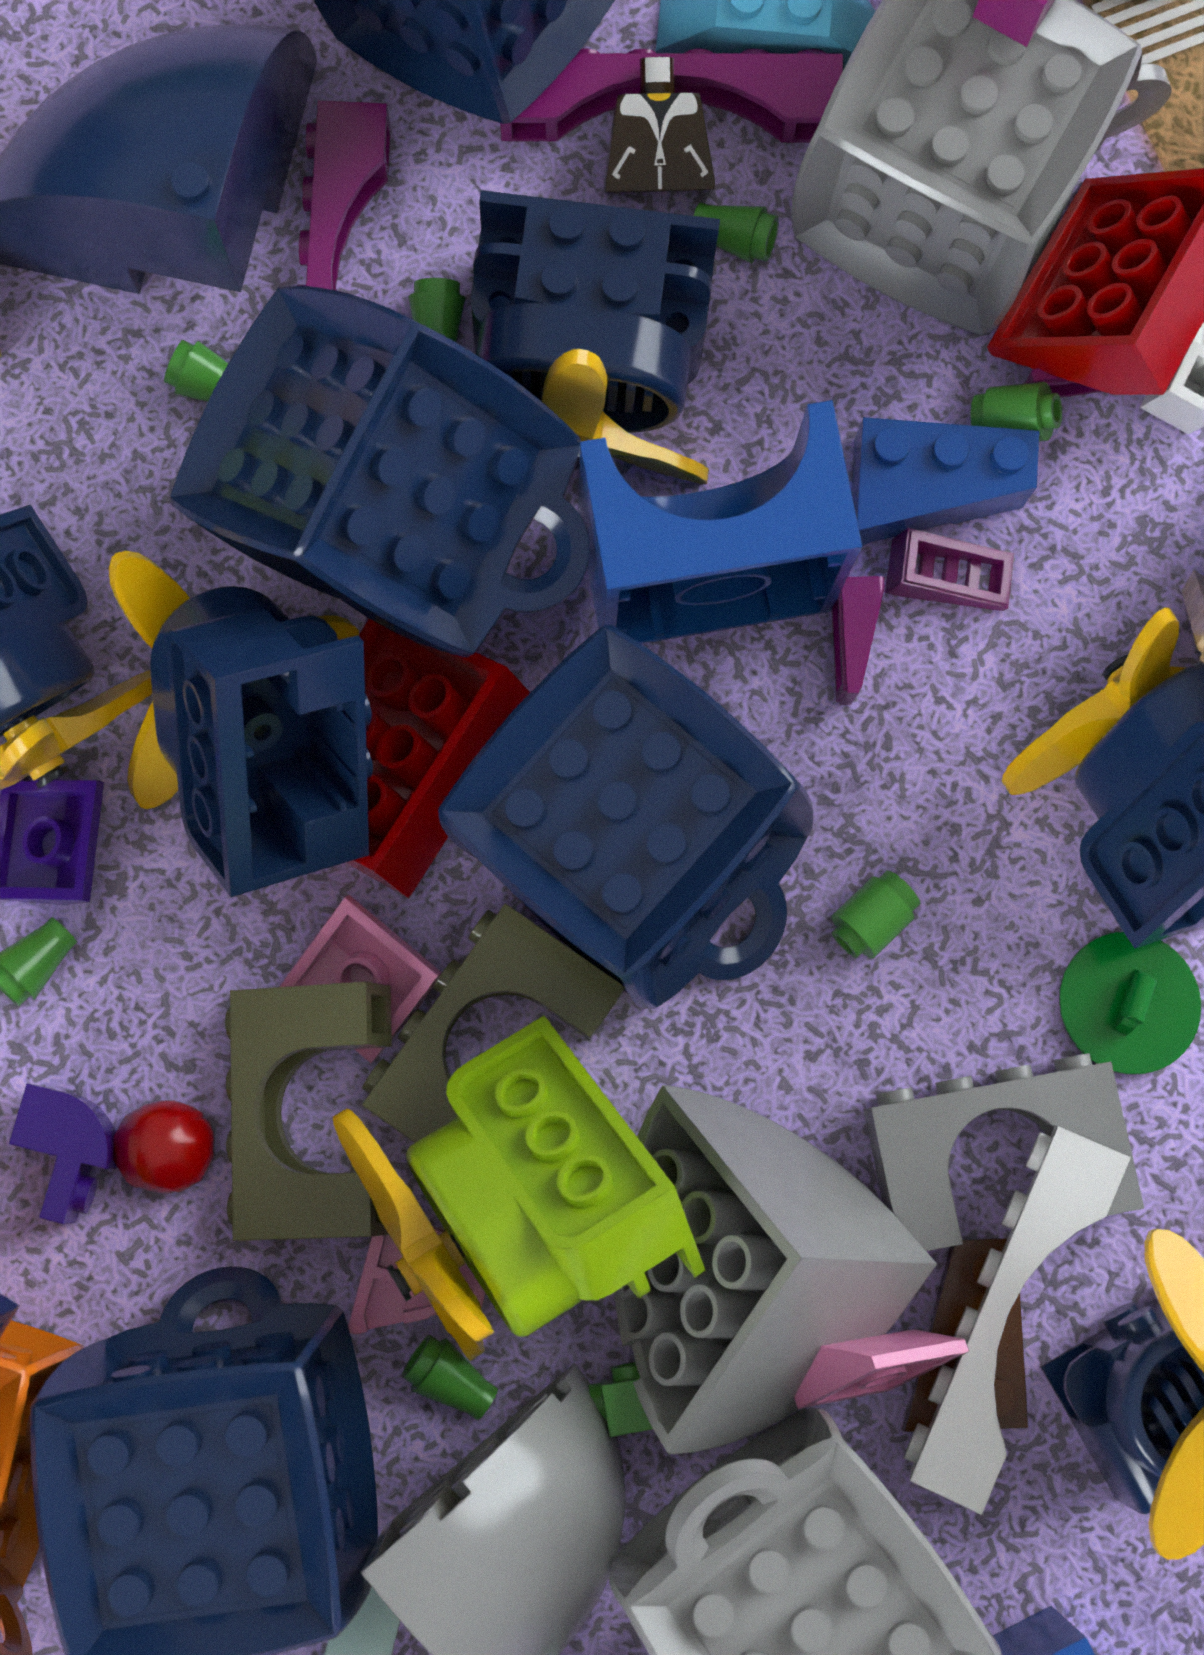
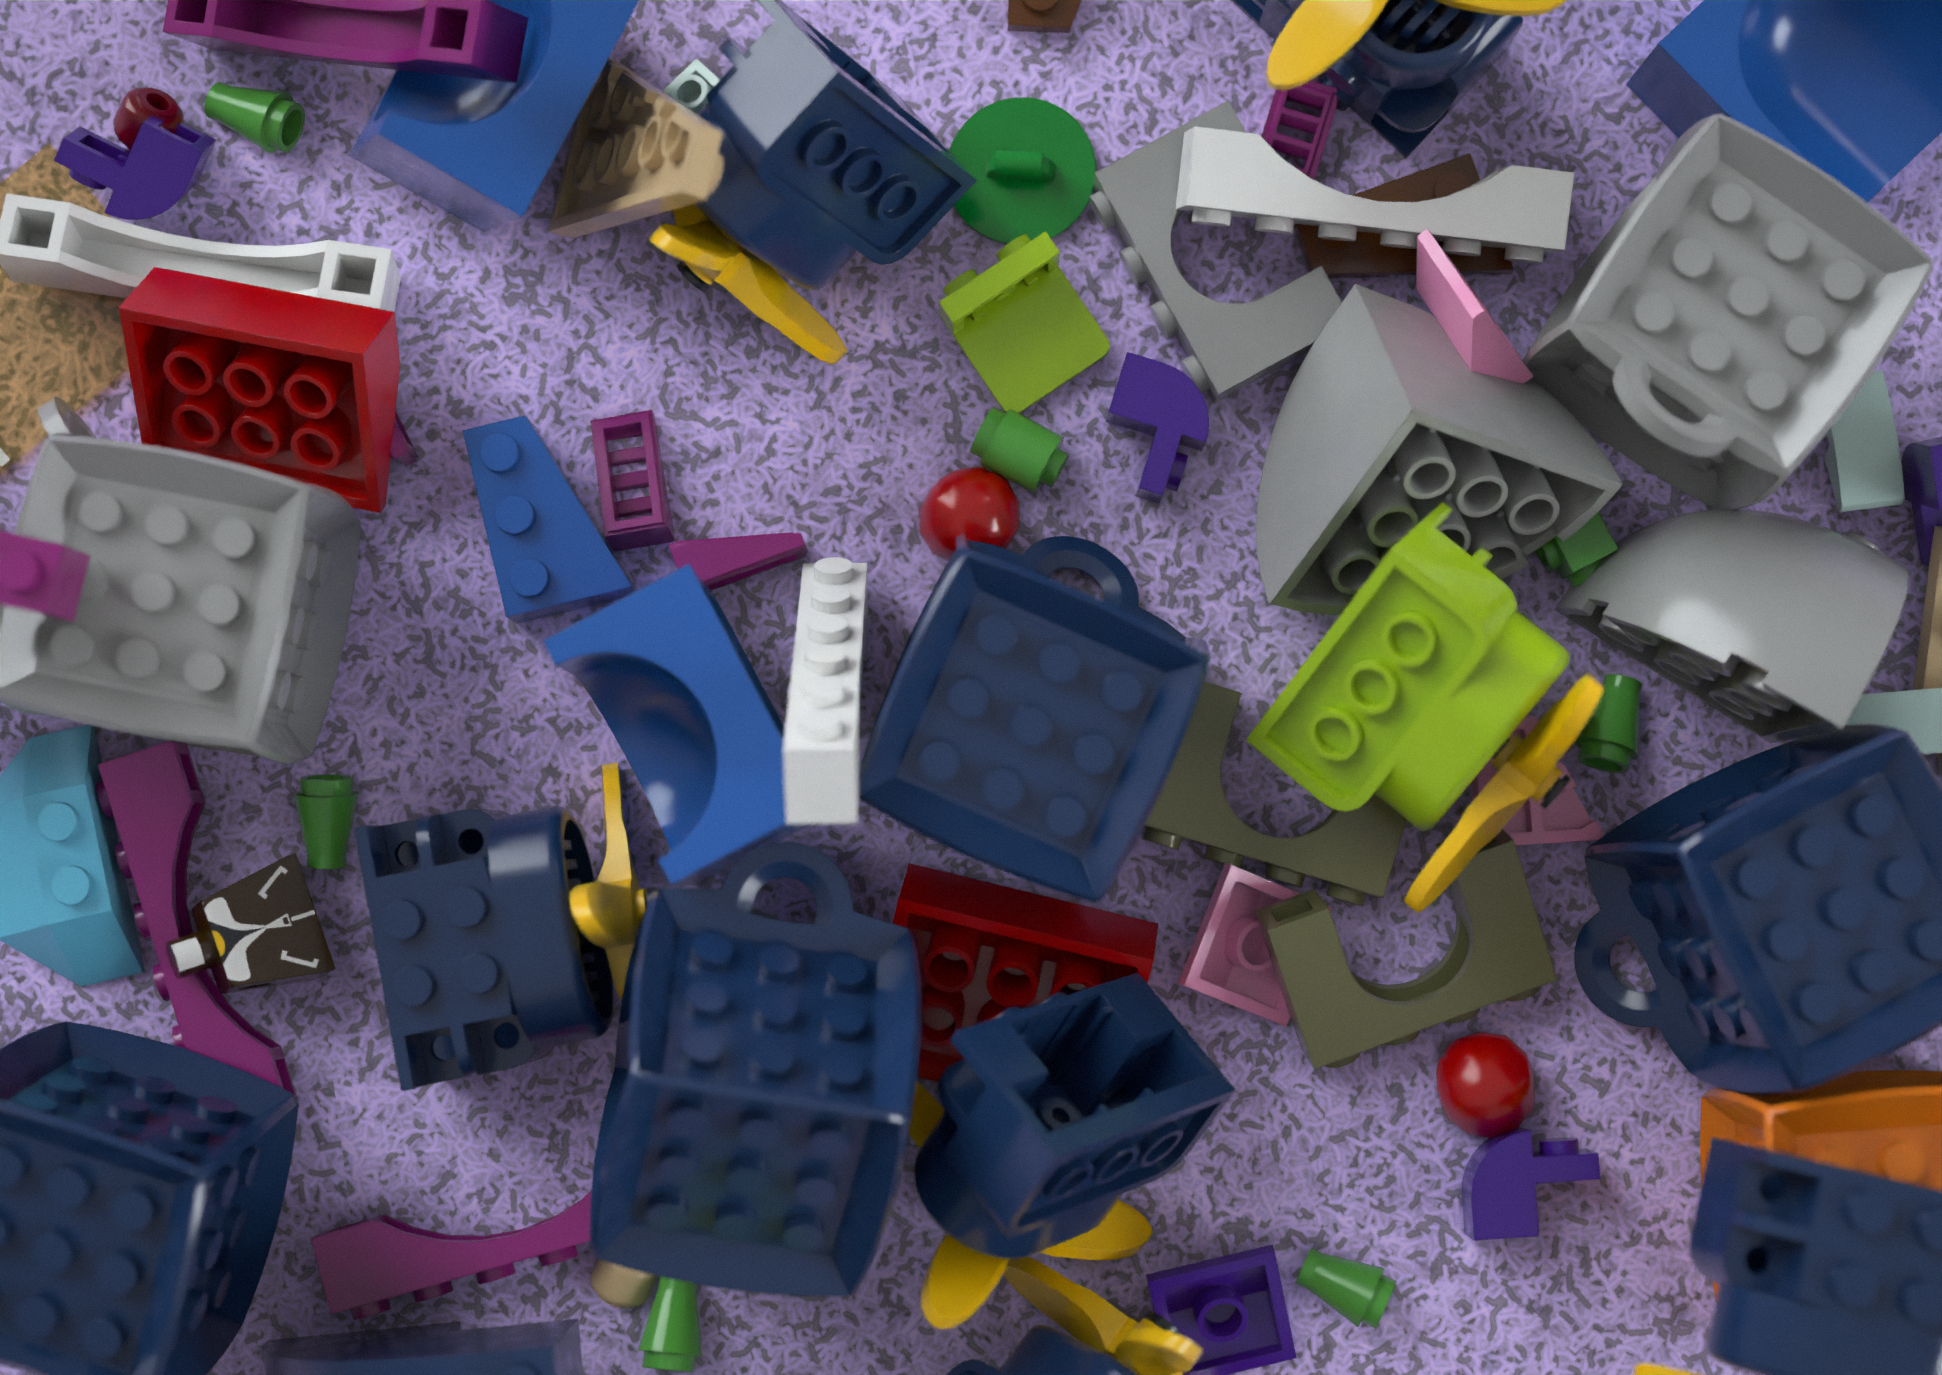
camera: 100 degrees left, 5 degrees up
(438, 305) = (531, 1105): bright green cone -> none
(670, 607) = (825, 694): none -> white arch
(834, 857) = (969, 504): none -> red hair
(873, 1060) = (1165, 405): none -> dark purple brick
(989, 955) = (1022, 324): none -> lime bracket
(1018, 407) = (441, 461): bright green brick -> none
(1129, 1288) = (1312, 95): none -> magenta slope

